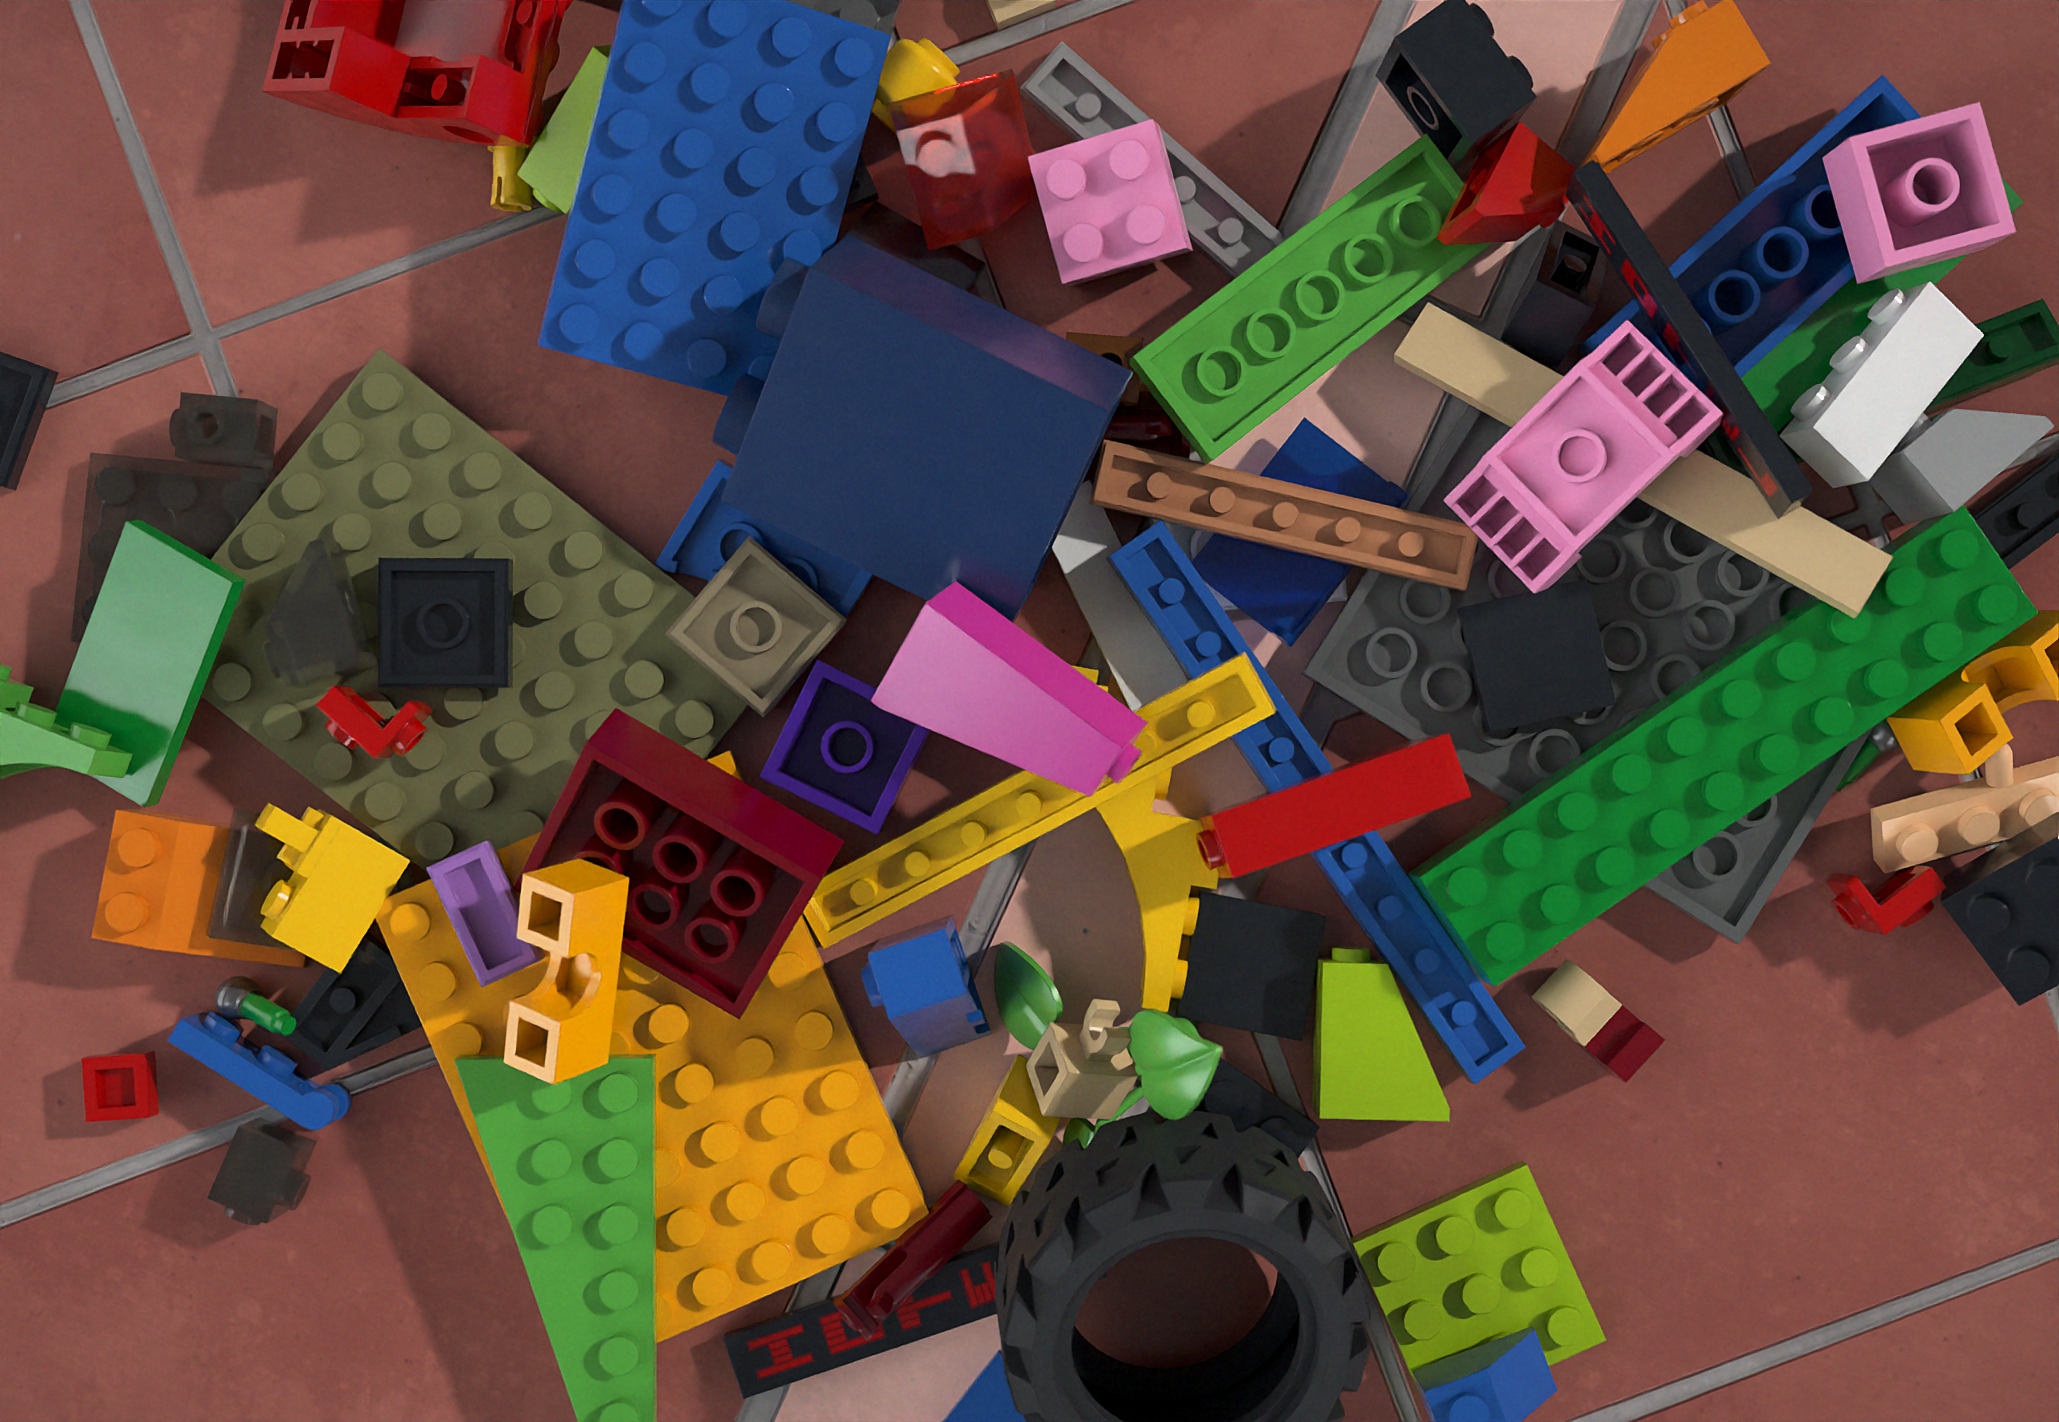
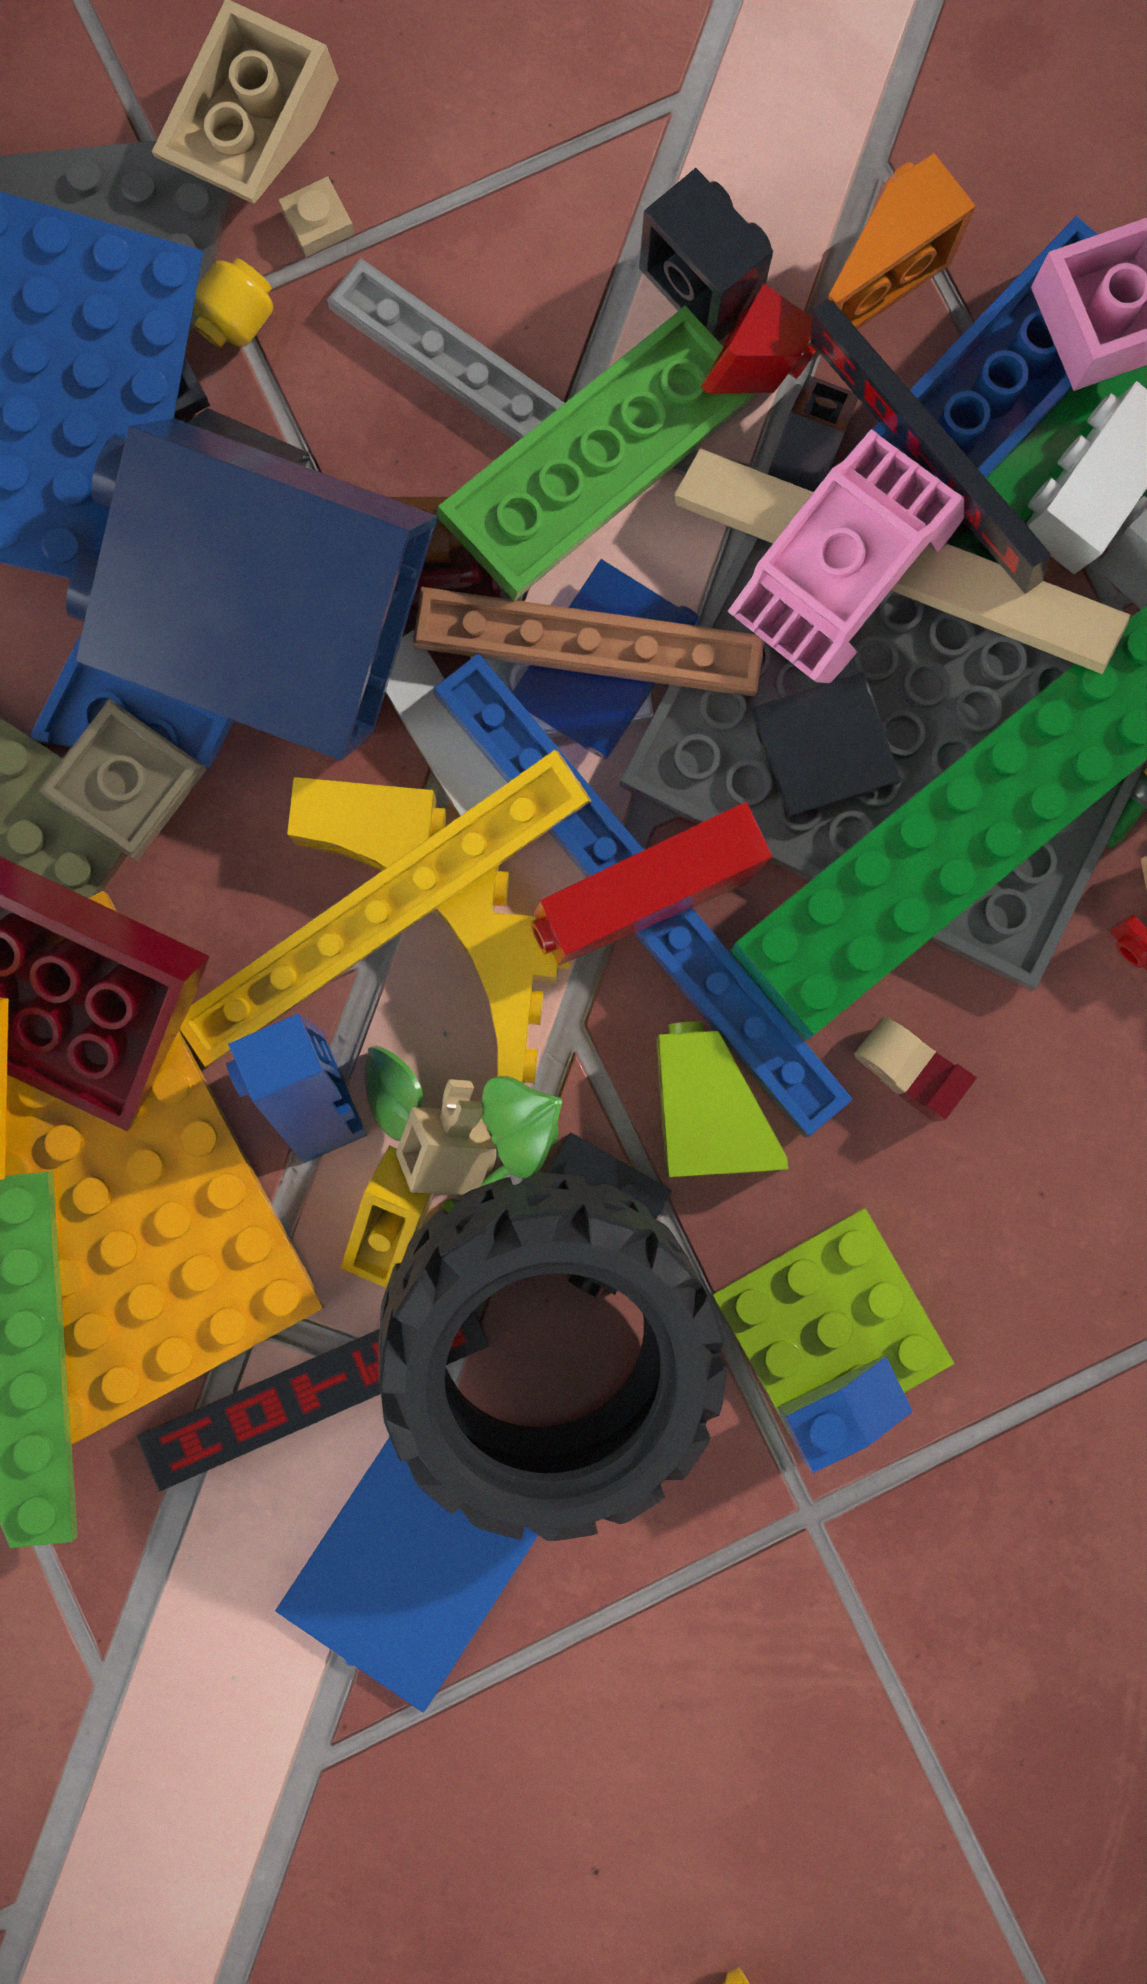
camera: 10 degrees left, 5 degrees down
(845, 749) = (213, 878): dark purple brick -> none
(913, 1259) = (306, 1344): dark red piece -> none
(965, 156) = (281, 354): clear red slope -> none
(1007, 695) = (342, 805): dark pink slope -> none
(1110, 203) = (411, 384): bright pink brick -> none
(1251, 965) = (598, 1048): black tile -> none

